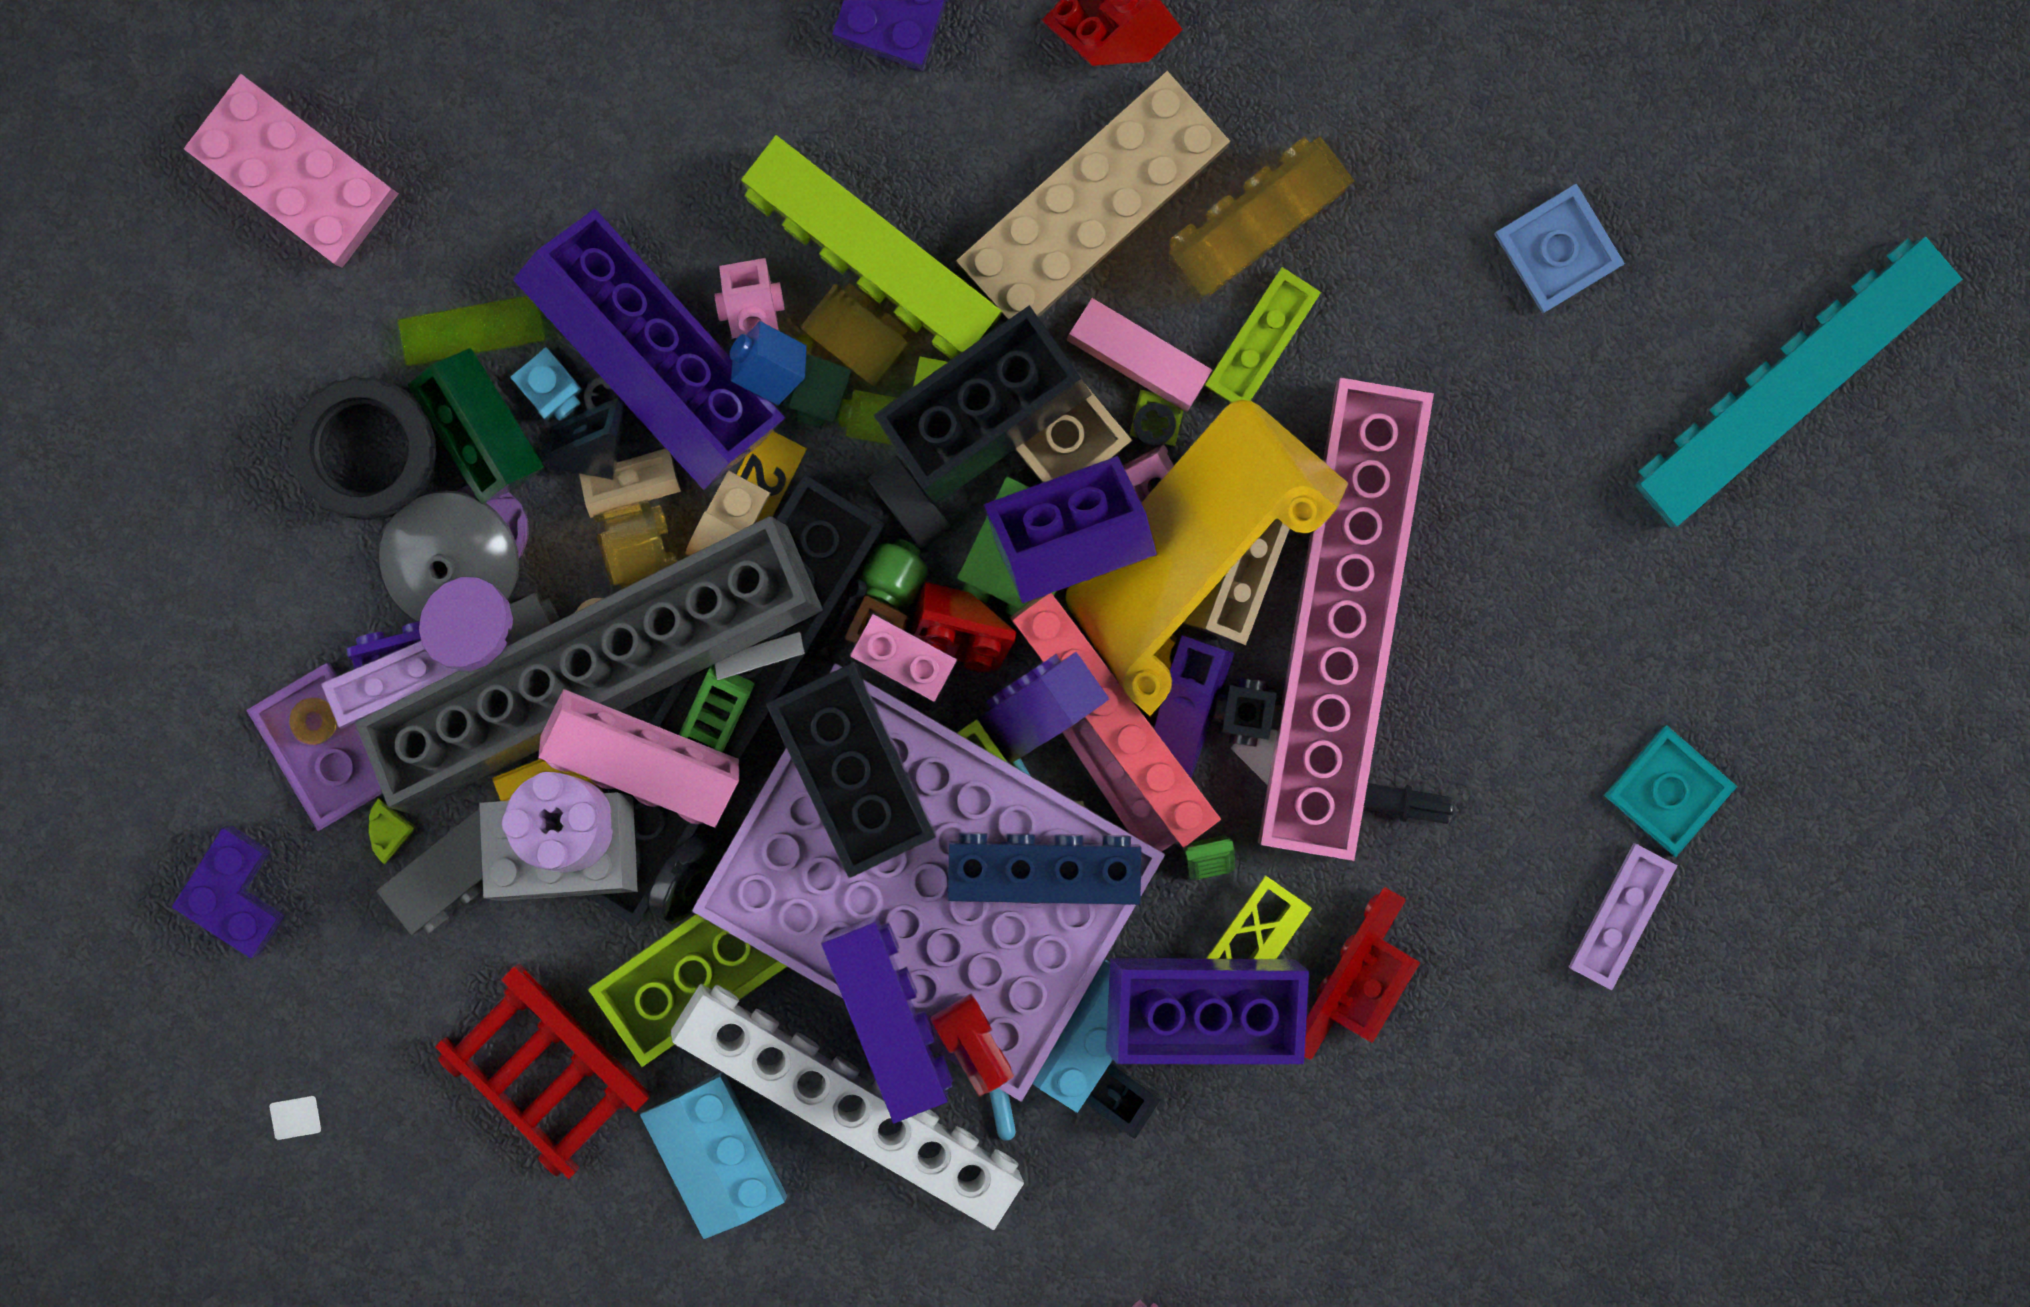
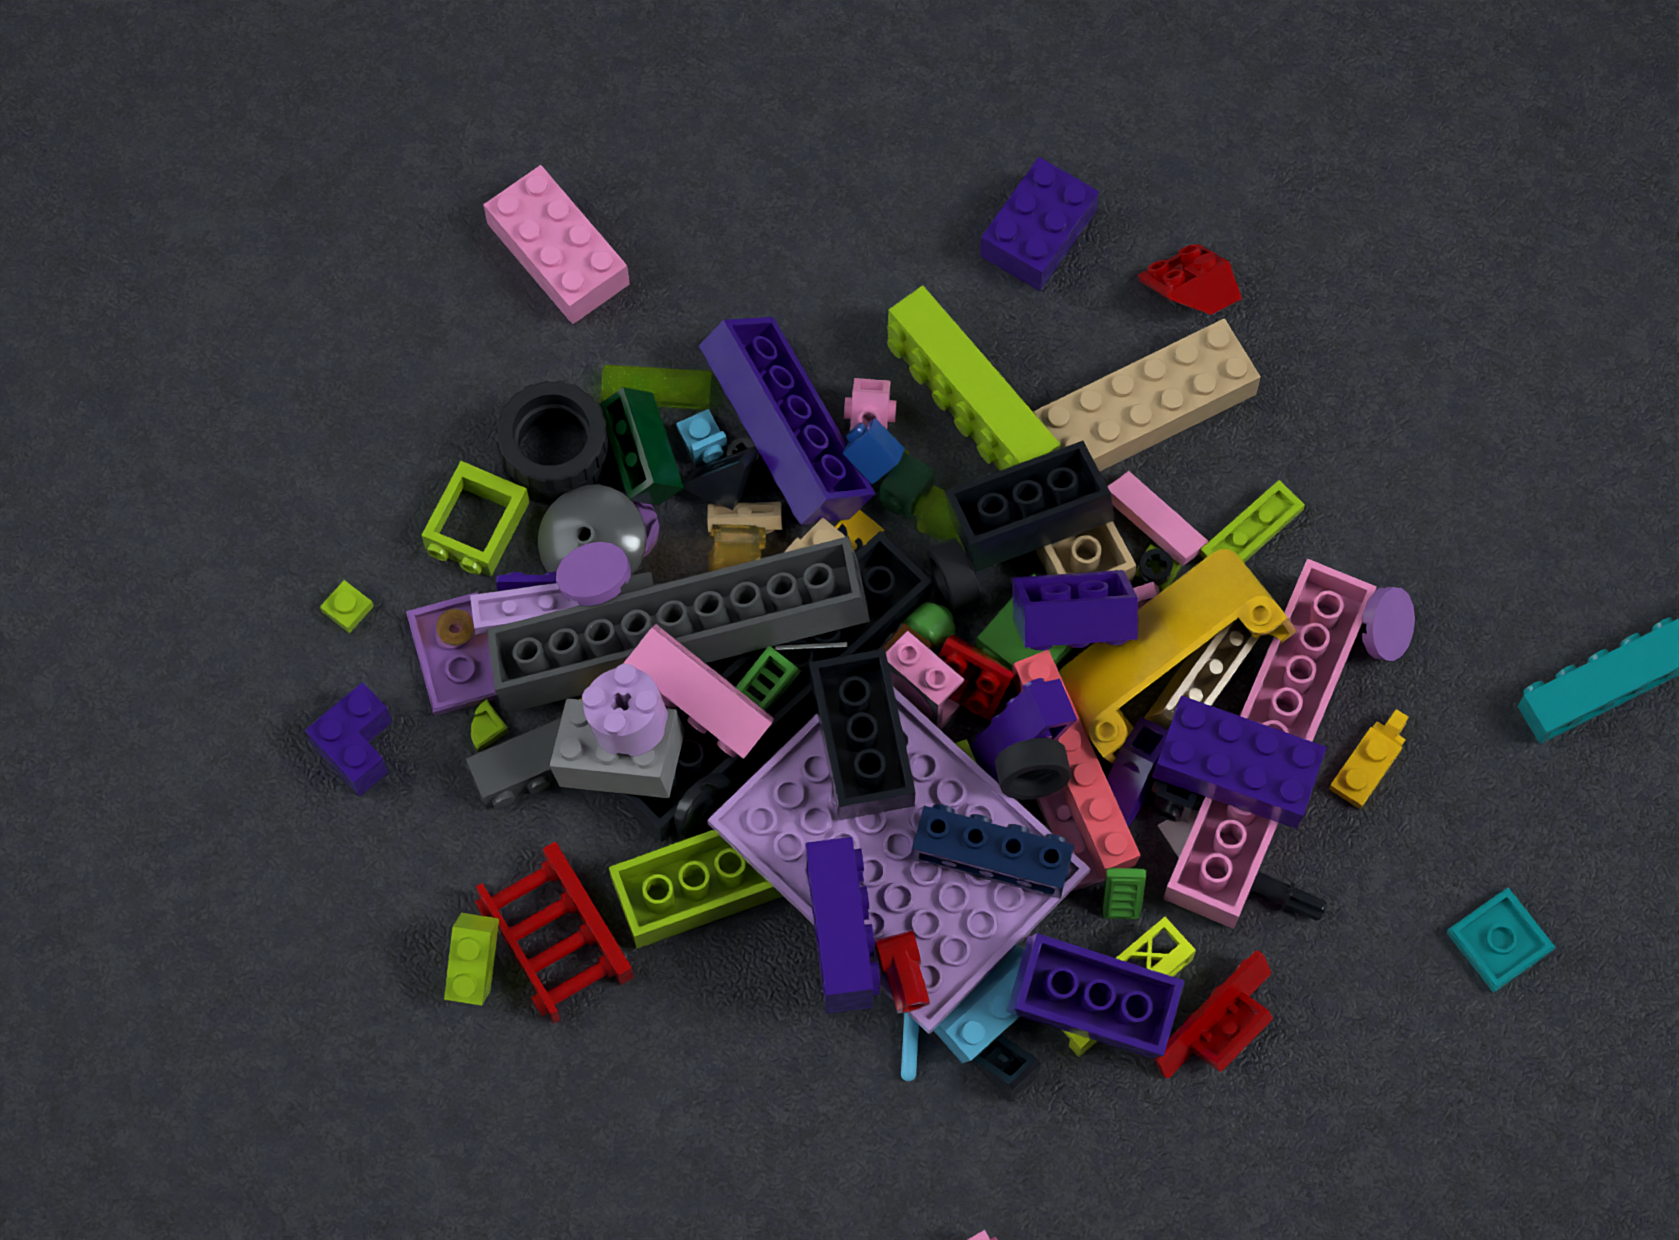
camera: 15 degrees right, 20 degrees down
(171, 720) = (346, 606): none -> lime plate
(295, 1117) = (348, 926): white sticker -> none
(306, 626) = (492, 488): none -> lime window
(455, 1137) = (471, 959): none -> lime brick
(714, 1156) = (669, 1031): medium azure slope -> none
(856, 334) = (939, 446): clear yellow brick -> none
(982, 1198) = (875, 1117): white brick -> none
(1068, 757) = (1033, 768): none -> black tyre
(1259, 219) = (1269, 437): clear yellow brick -> none
(1314, 677) = (1239, 762): none -> dark purple brick
(1457, 430) = (1389, 623): none -> medium lavender tile
(1469, 604) = (1370, 761): none -> yellow hinge
(1559, 248) = (1494, 518): medium blue plate -> none
(1622, 916) = (1443, 1025): lavender plate -> none

